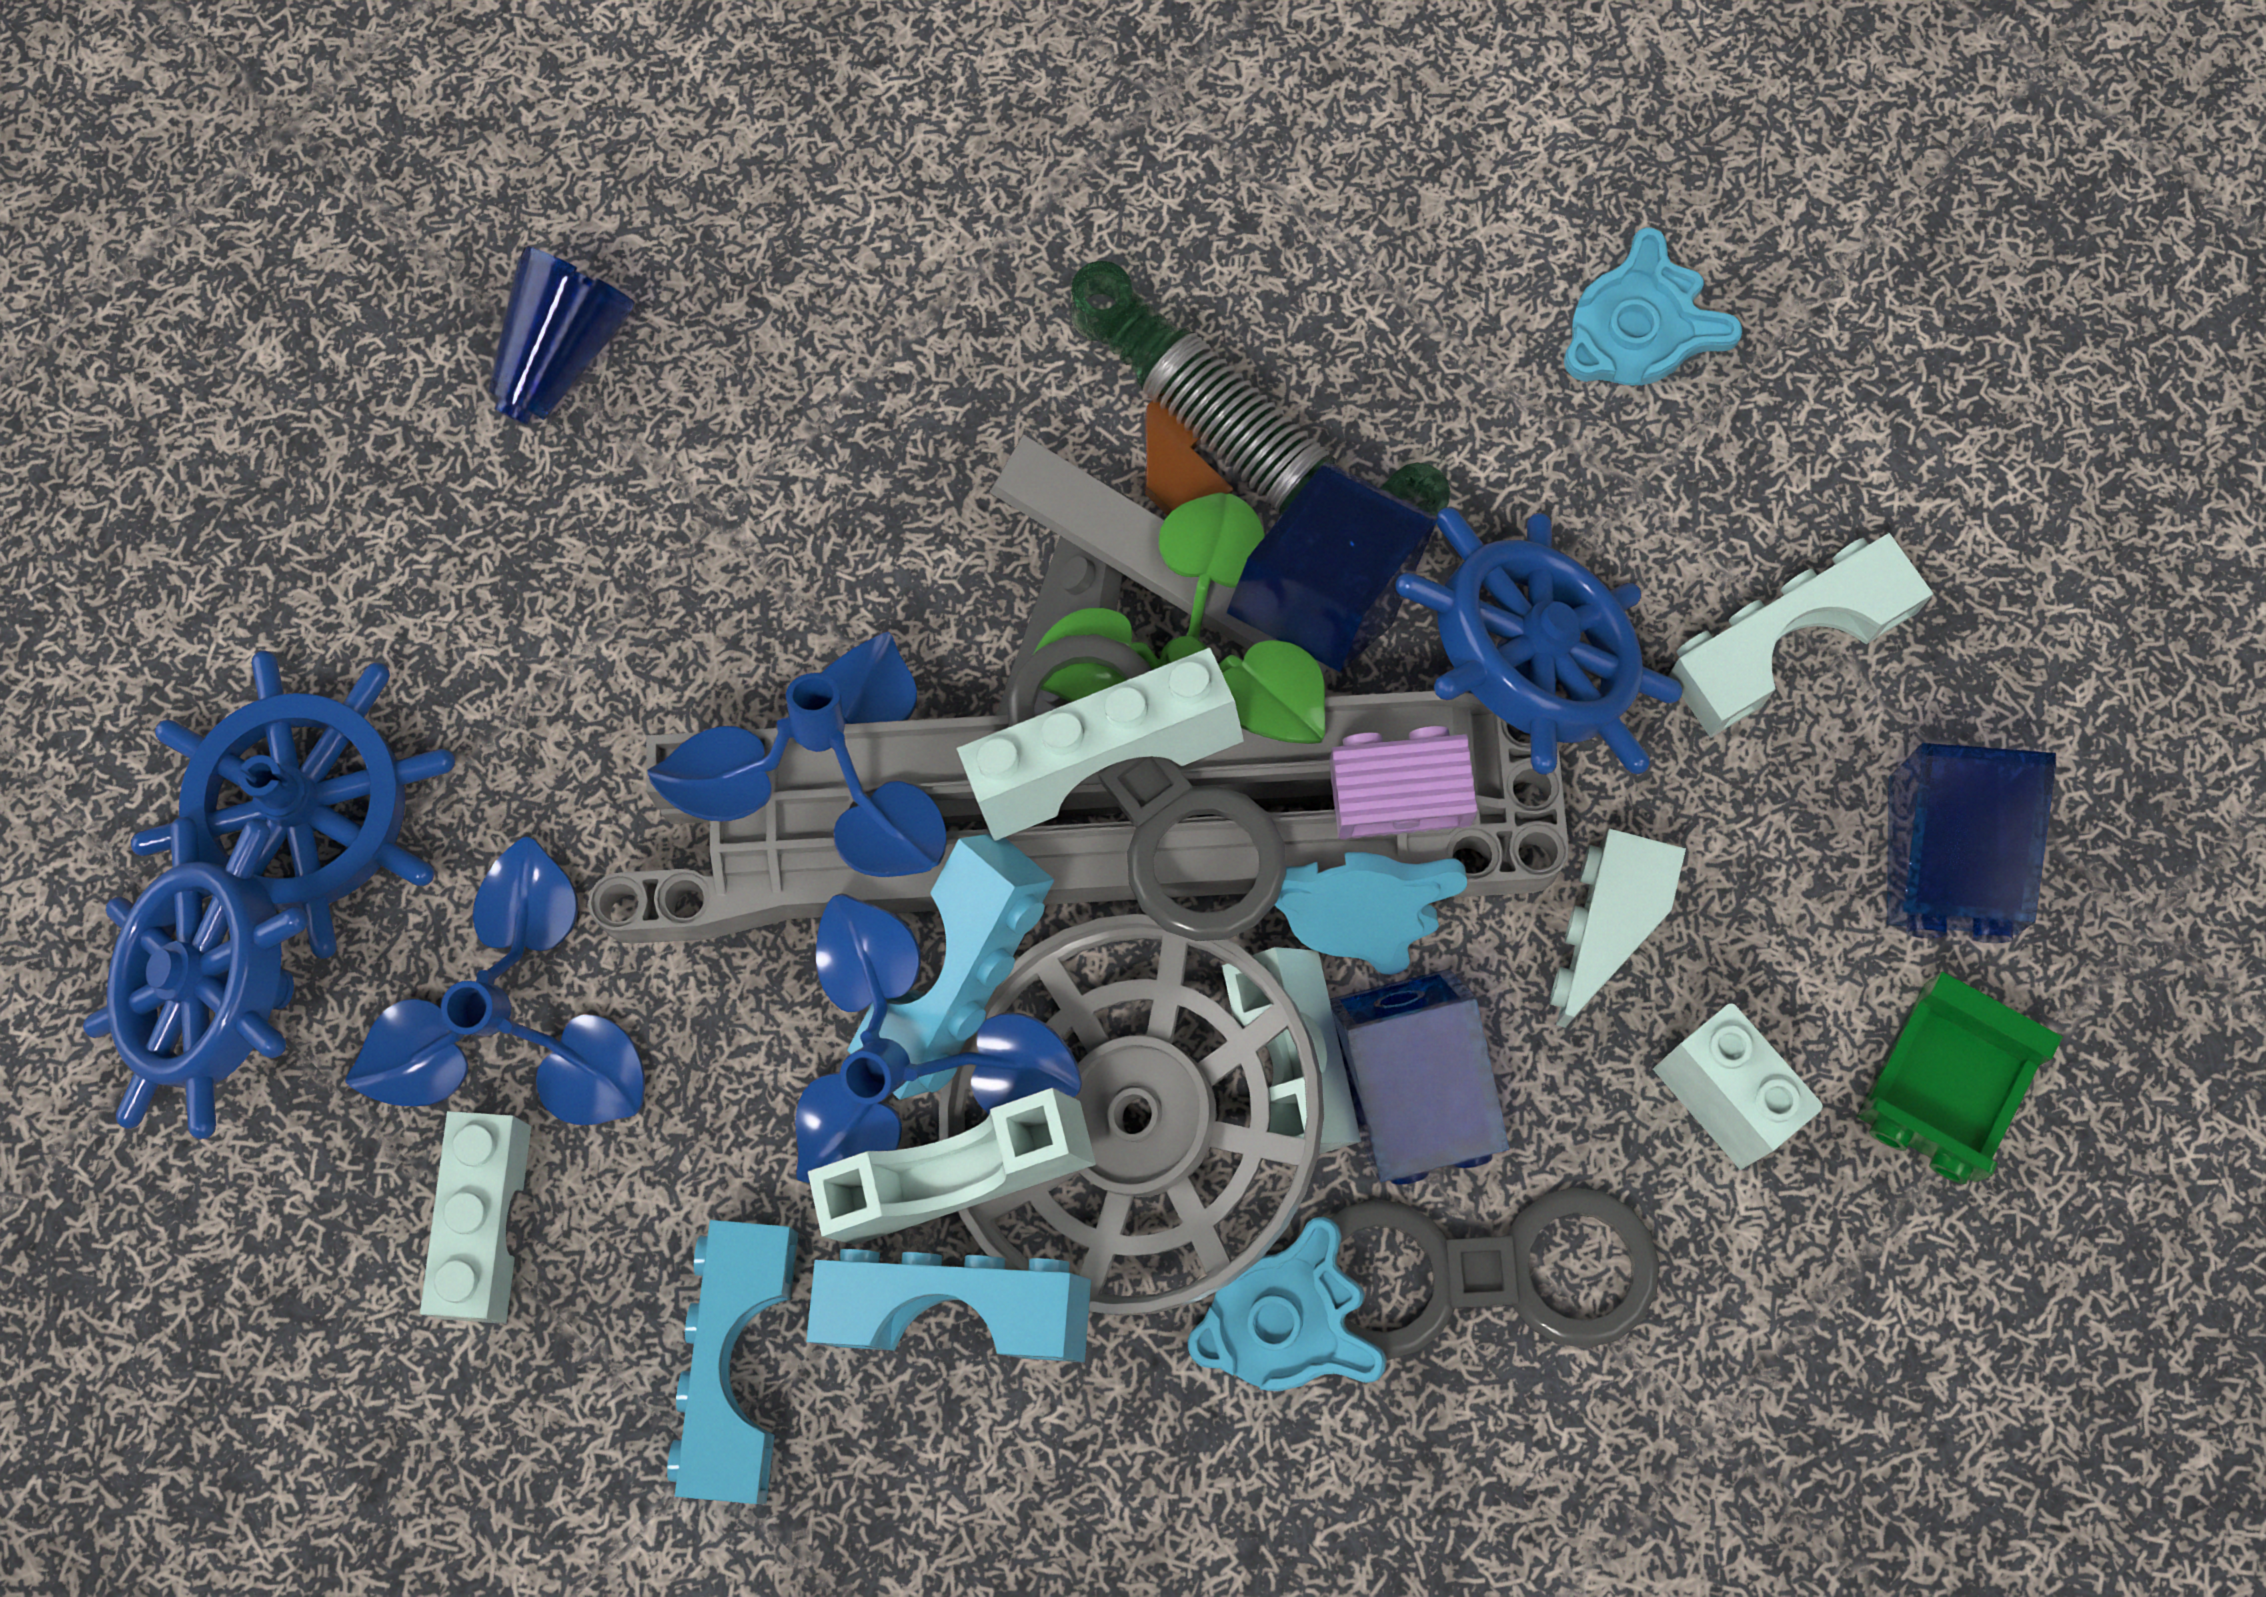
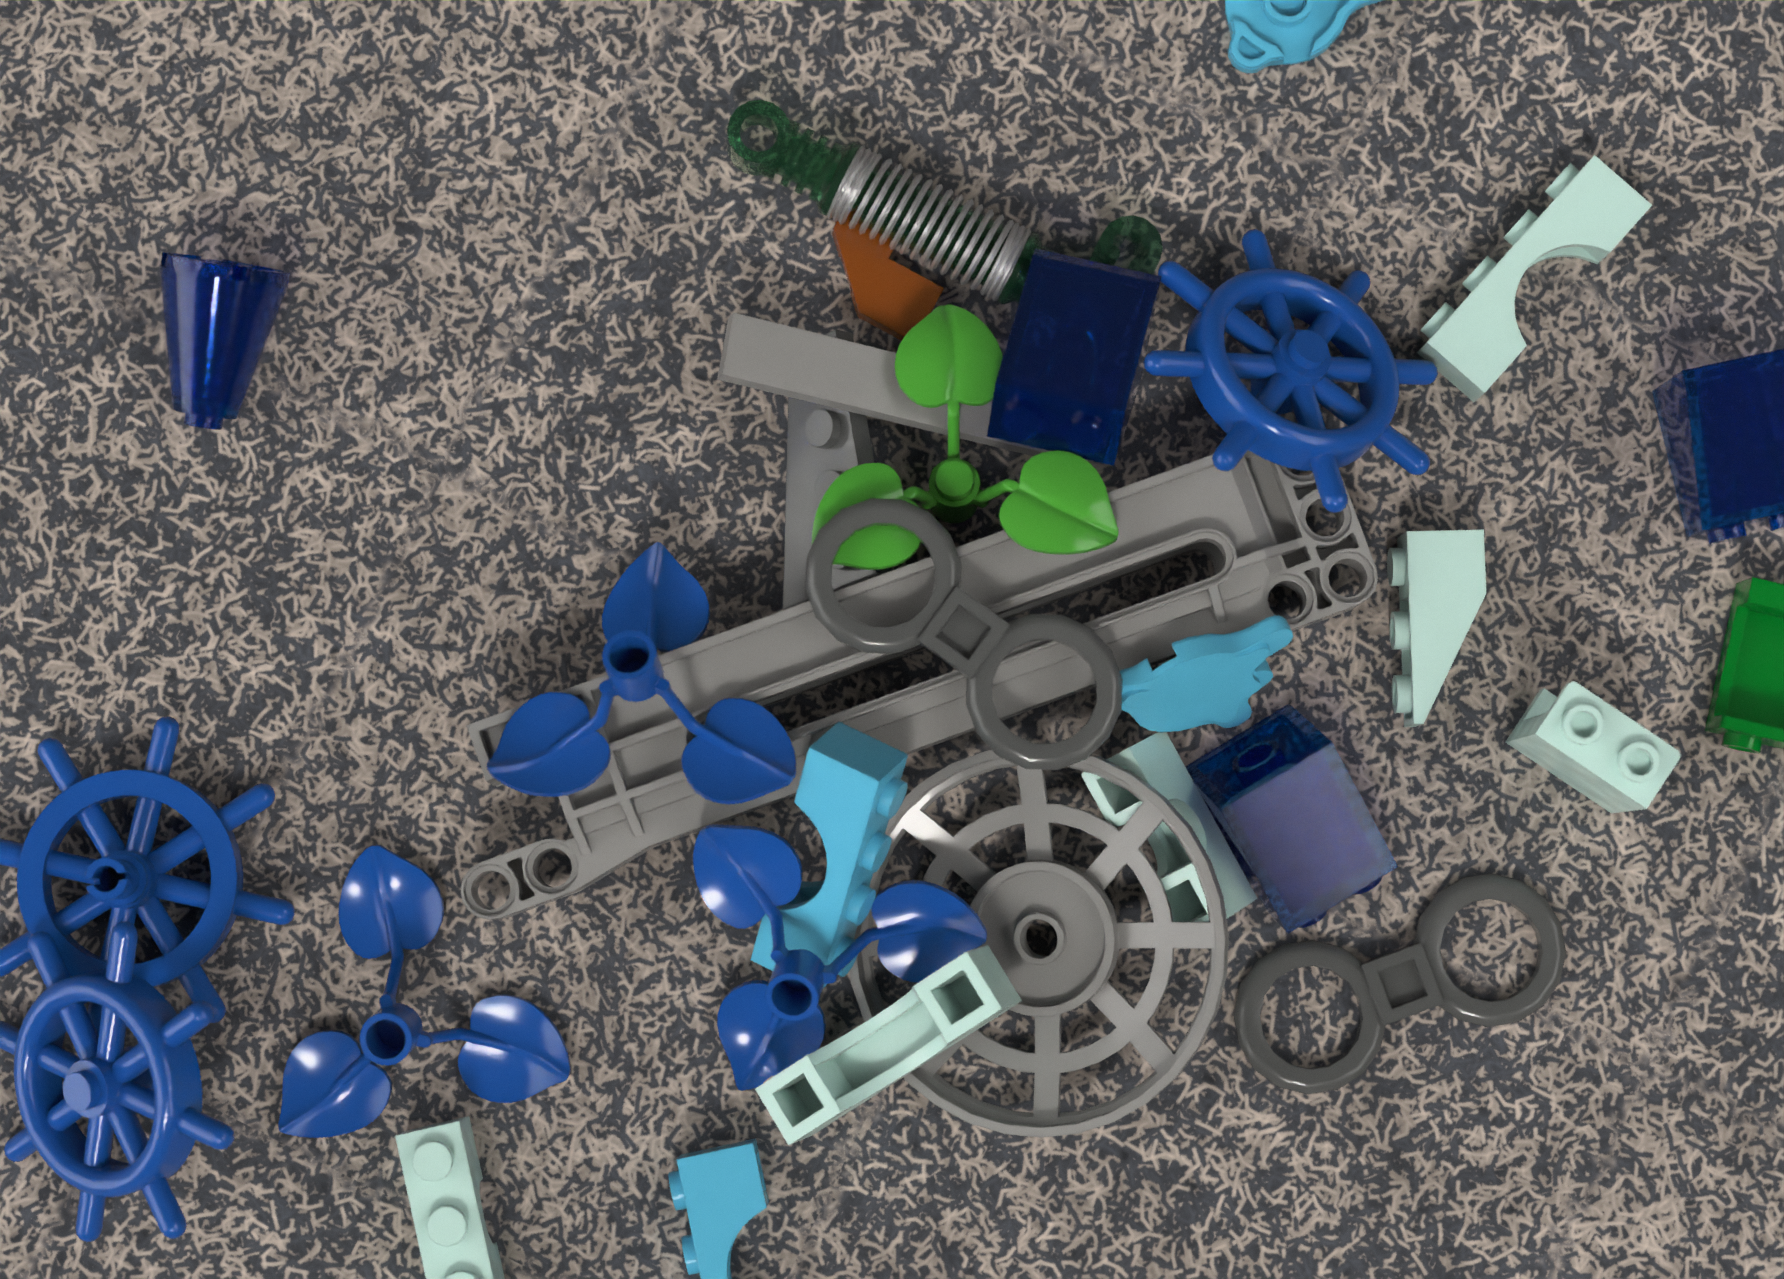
camera: 20 degrees left, 10 degrees up
(873, 1303) = (1003, 1157): medium azure arch -> none
(1166, 713) = (961, 573): light aqua arch -> none
(1288, 1318) = (1240, 1083): medium azure tile -> none
(1402, 783) = (1208, 562): lavender brick -> none

